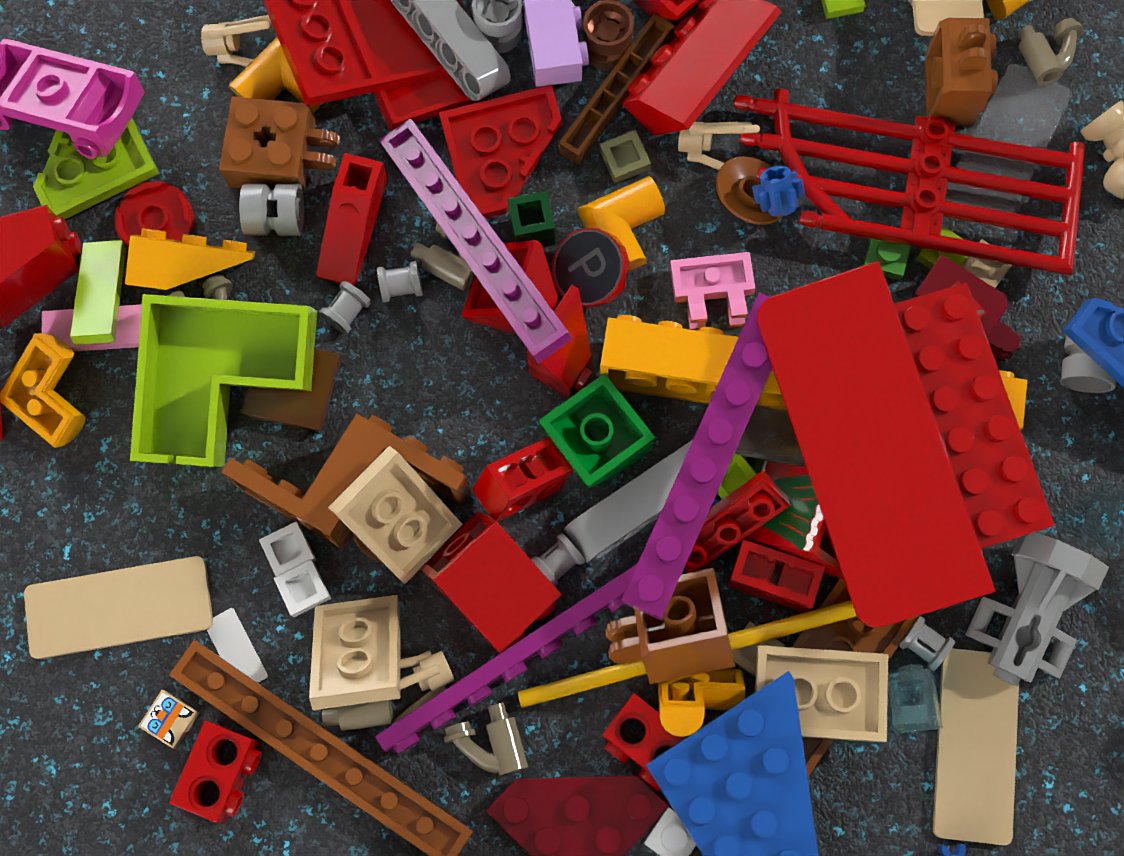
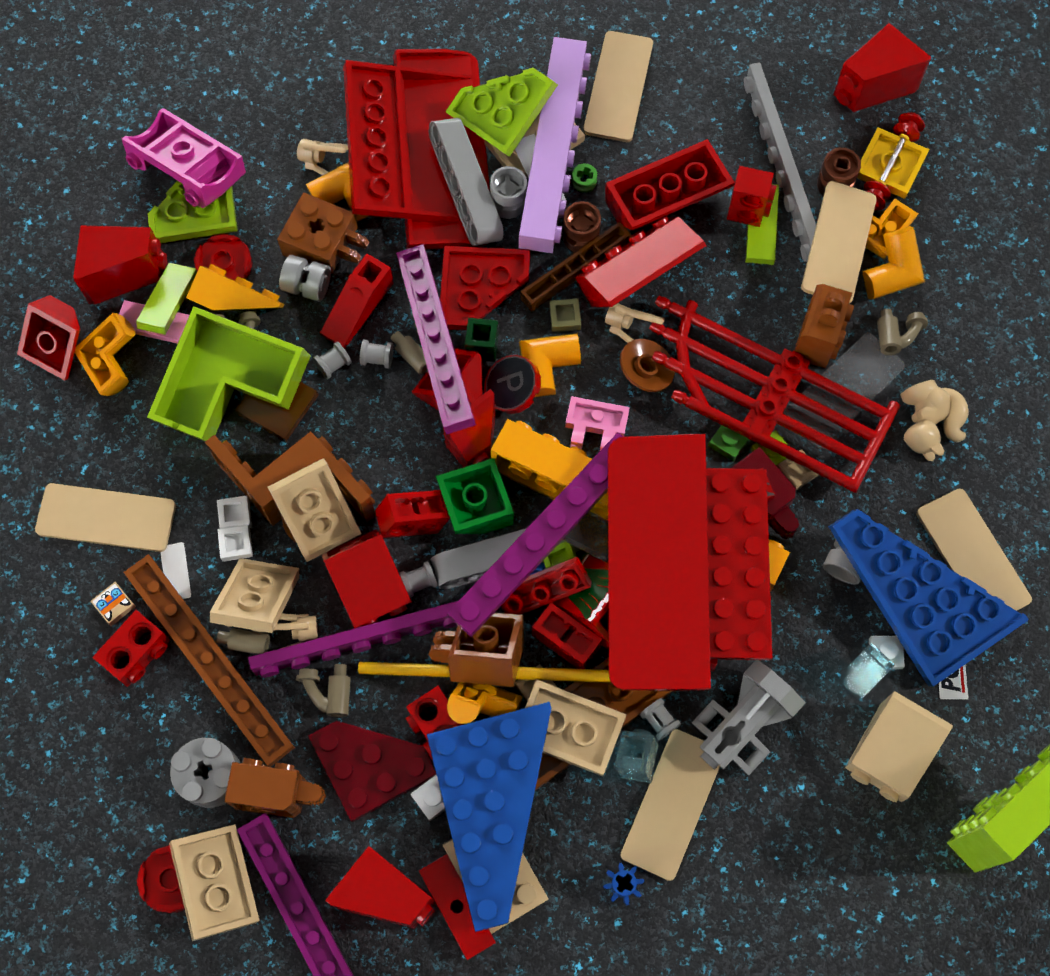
camera: 15 degrees right, 5 degrees down
(778, 191) = (662, 369): blue gear -> none

